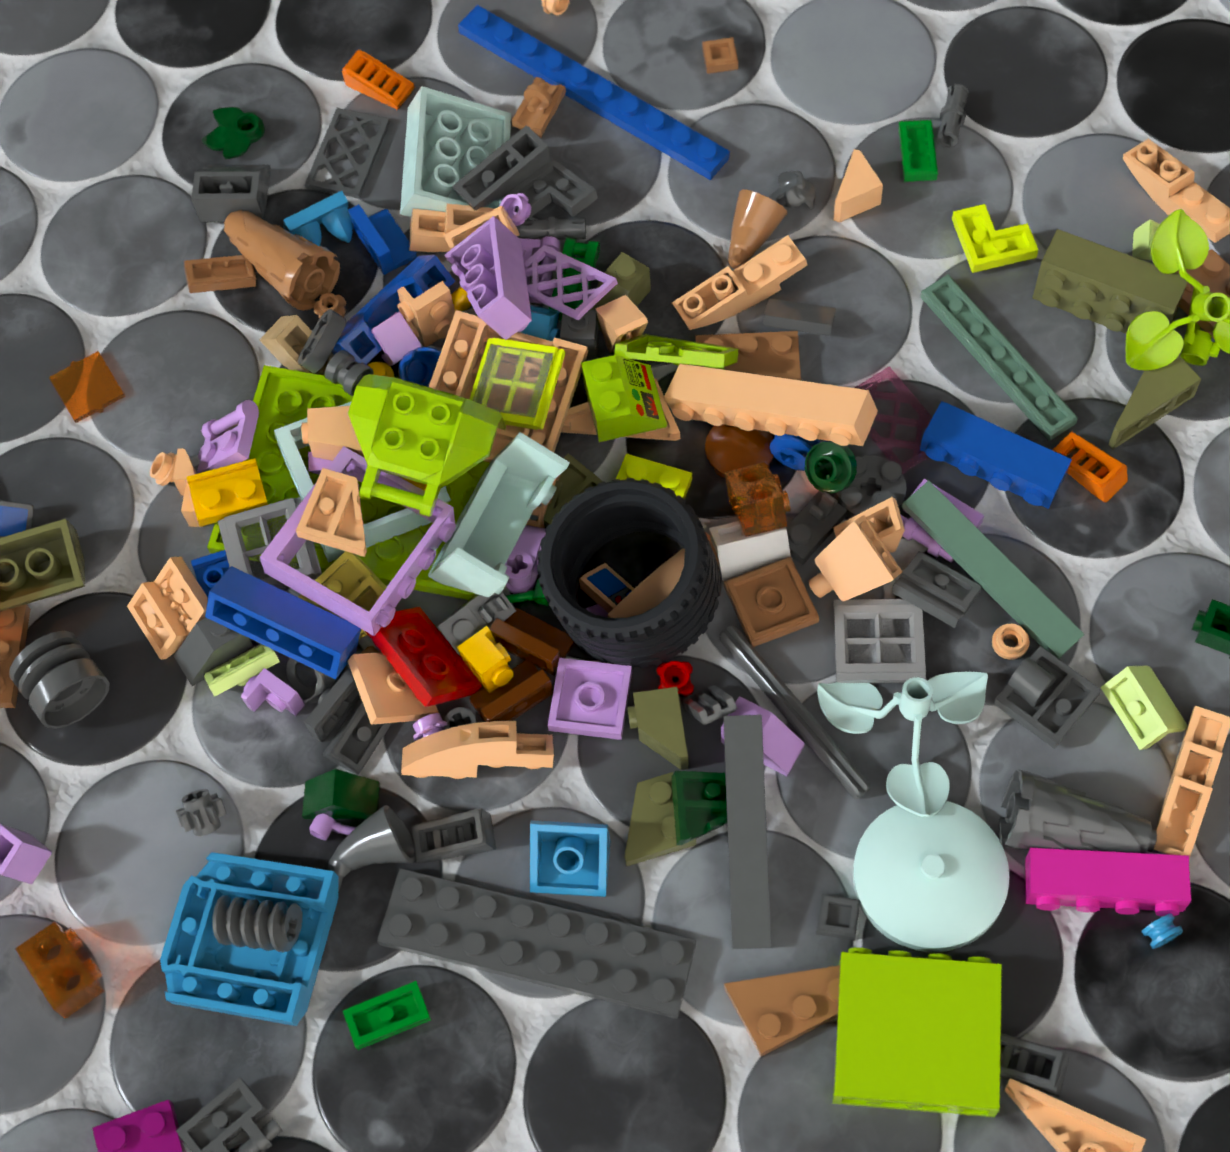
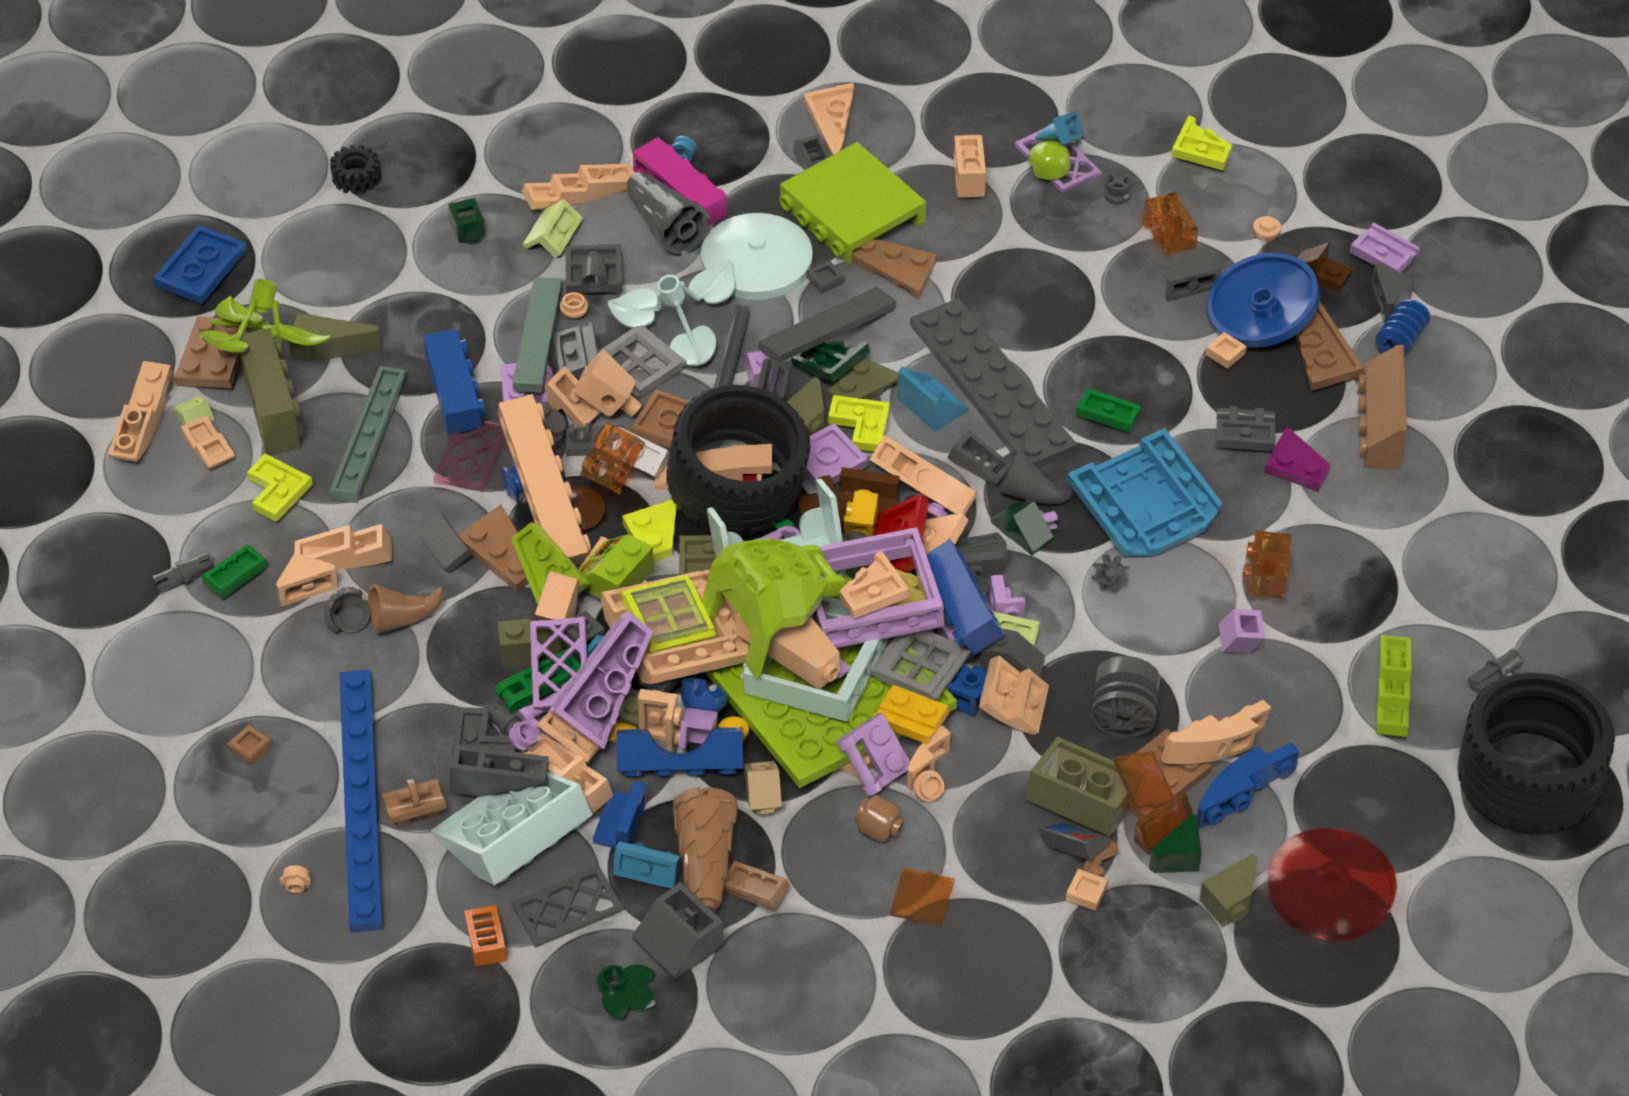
camera: 140 degrees left, 15 degrees down
(174, 401) = (879, 818): none -> medium nougat head
(256, 923) = (1134, 483): dark grey piece -> none
(322, 341) = (748, 745): dark grey beam -> none
(346, 371) = (756, 715): dark grey wheel -> none
(603, 778) = (865, 415): none -> neon yellow plate
(742, 288) = (461, 587): light nougat slope -> none
(830, 467) = (559, 433): dark green plate -> none
(863, 240) = (348, 548): none -> light nougat slope
(1103, 229) = (207, 442): none -> light nougat slope
(1106, 480) = (410, 324): orange slope -> none

